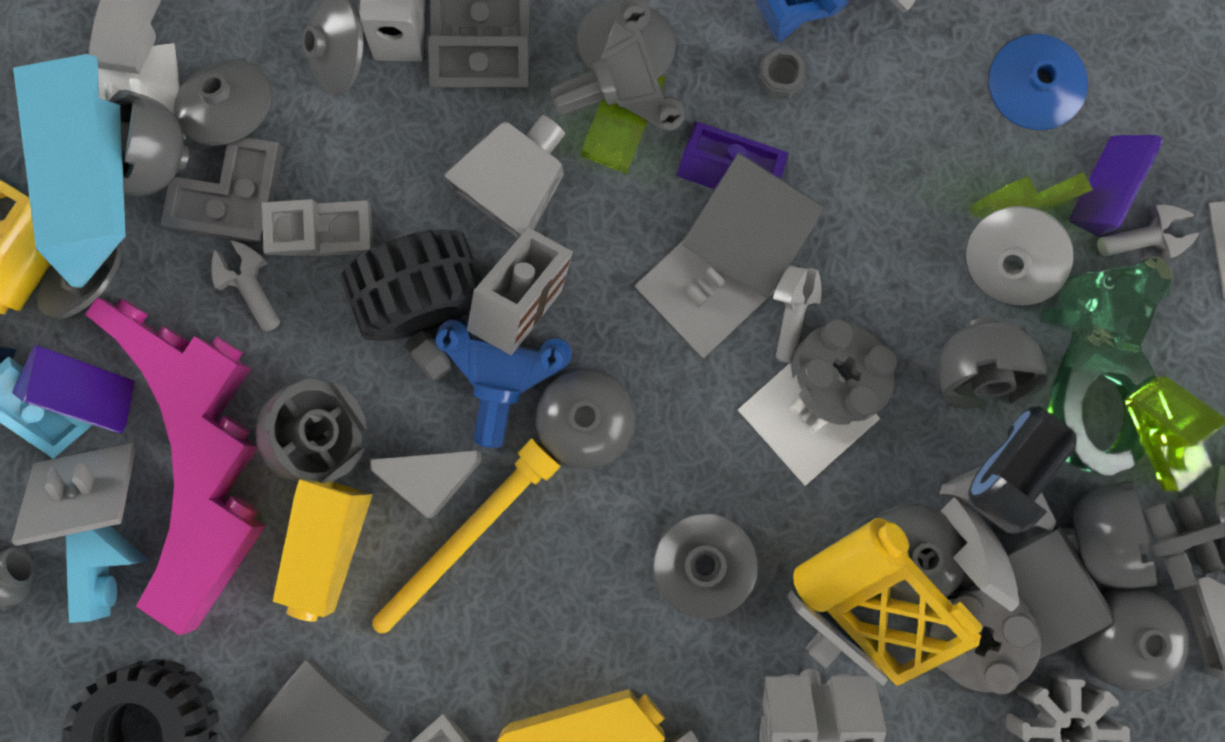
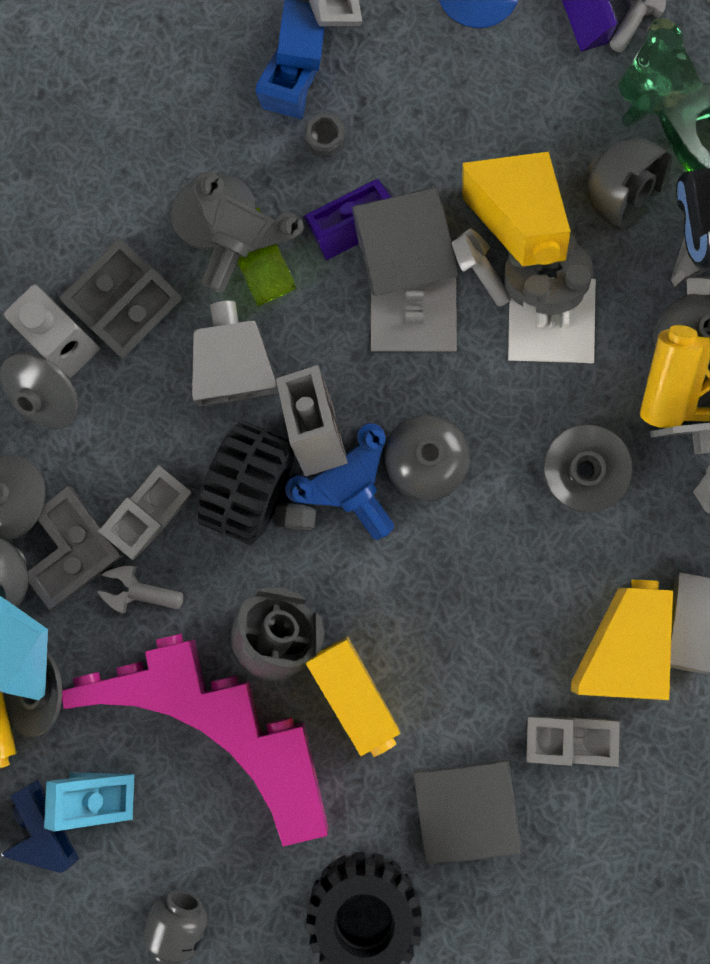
camera: 45 degrees left, 0 degrees up
(75, 389) = (106, 759): dark purple slope -> none
(75, 494) = (172, 822): light grey piece -> none
(88, 579) = (218, 844): medium azure slope -> none
(427, 479) = (373, 589): light grey slope -> none
(531, 467) = (425, 519): yellow piece -> none
(877, 293) = (520, 205): none -> yellow slope
(1024, 194) = (545, 63): clear neon green slope -> none
(1031, 236) = (574, 80): light grey dish -> none

